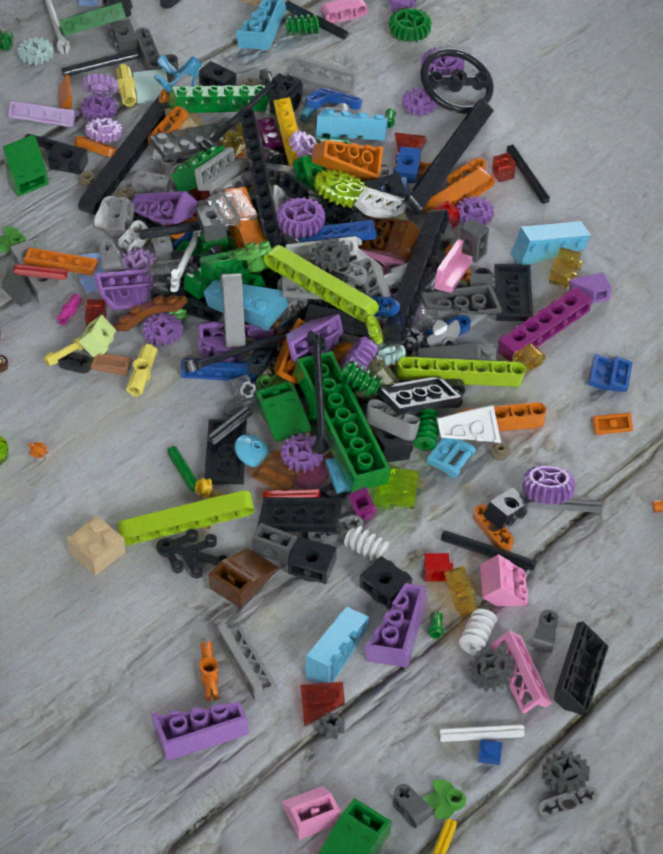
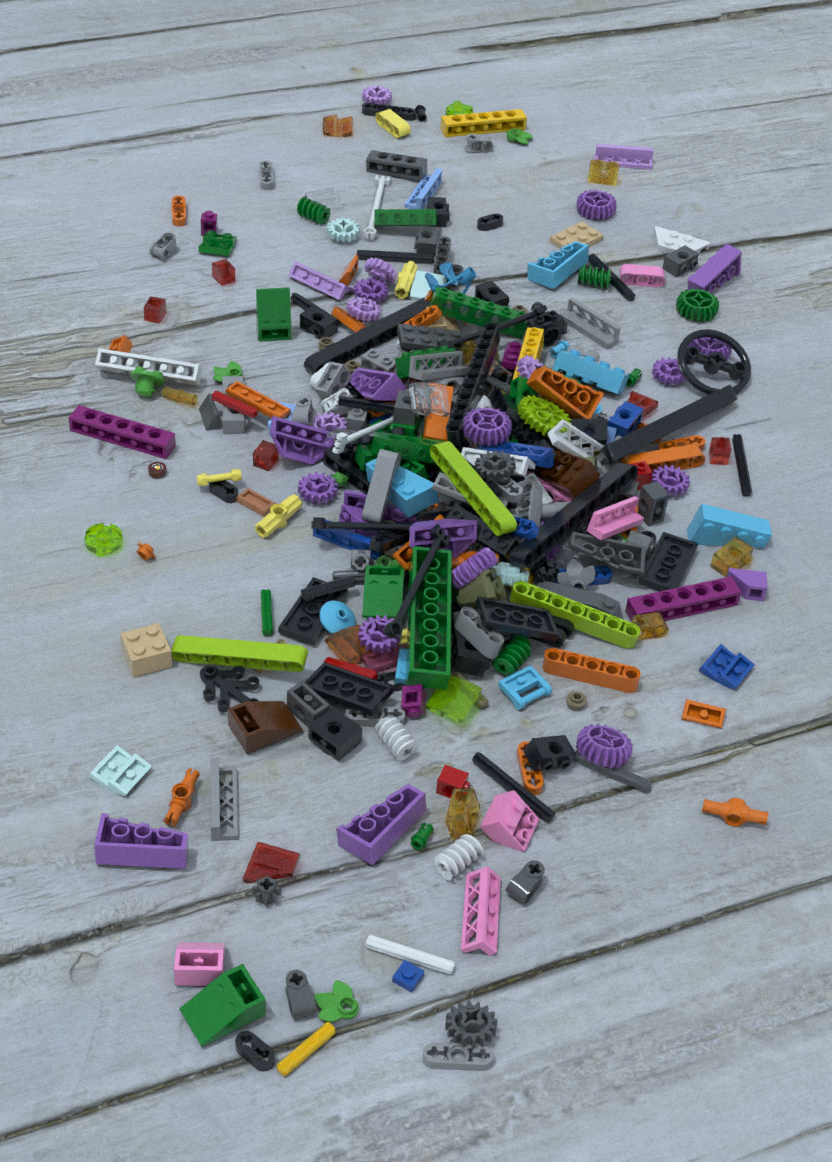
camera: 20 degrees right, 5 degrees down
(69, 309) = (245, 445): dark pink pin -> none
(97, 336) = (253, 473): yellowish green brick -> none
(138, 668) = (120, 771): none -> light aqua slope
(139, 312) = (302, 467): dark orange plate -> none
(203, 487) = (273, 634): yellow plate -> none
(253, 255) = (422, 444): bright green plate -> none
(324, 95) = (583, 340): blue beam -> none
(335, 646) = (311, 818): medium azure wedge -> none
(360, 378) = (462, 582): green piece -> none
(374, 330) = (501, 545): lime gear -> none
(384, 581) = (392, 774): black brick -> none
(473, 424) = (556, 664): white wing -> none
(492, 669) = (452, 897): dark grey gear -> none
(581, 670) = (540, 931): black piece -> none

